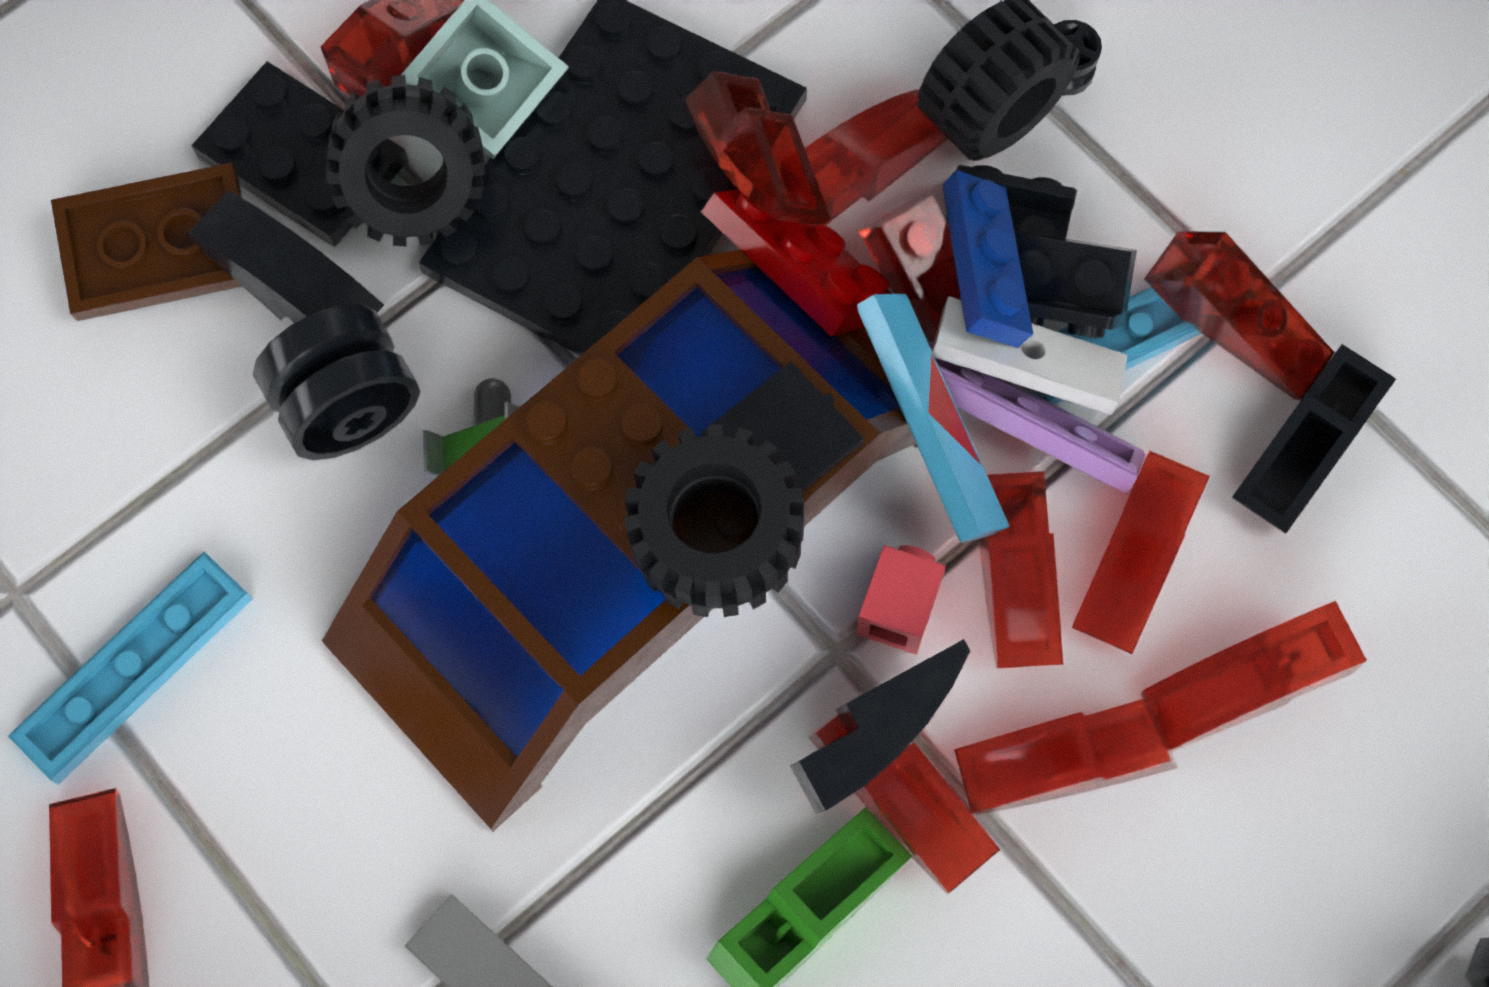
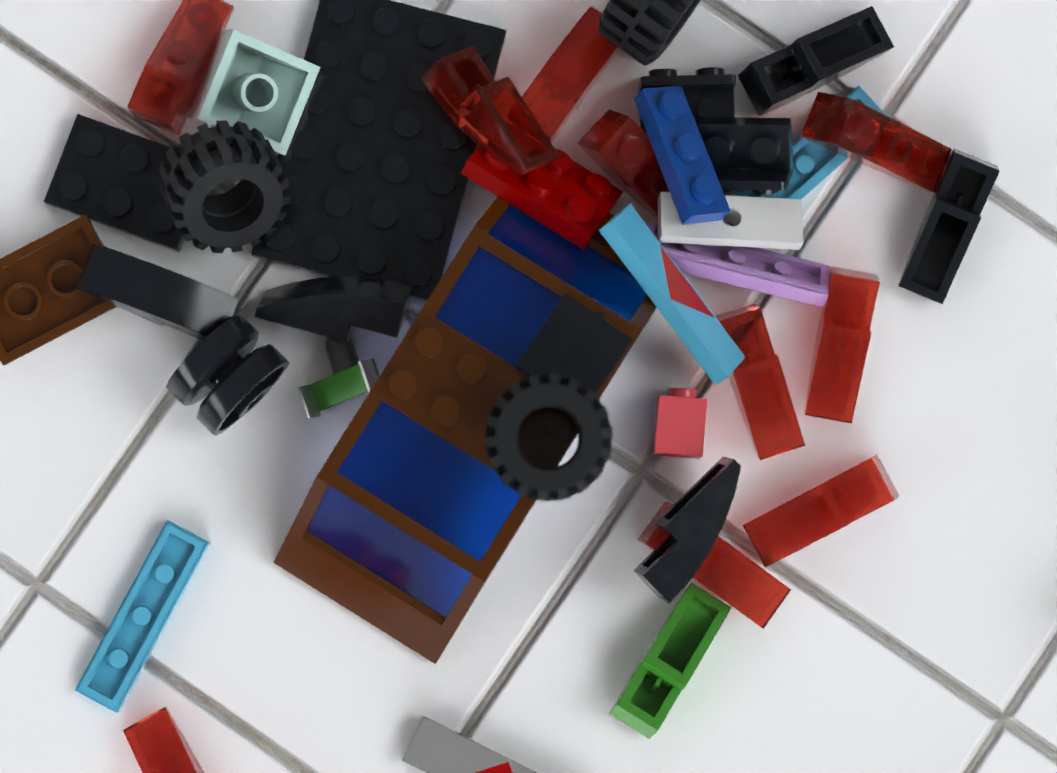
camera: 20 degrees left, 15 degrees up
(499, 342) = (338, 305): none -> black slope
(1193, 197) = (814, 60): none -> black slope
(1256, 675) = (940, 419): clear red slope -> none

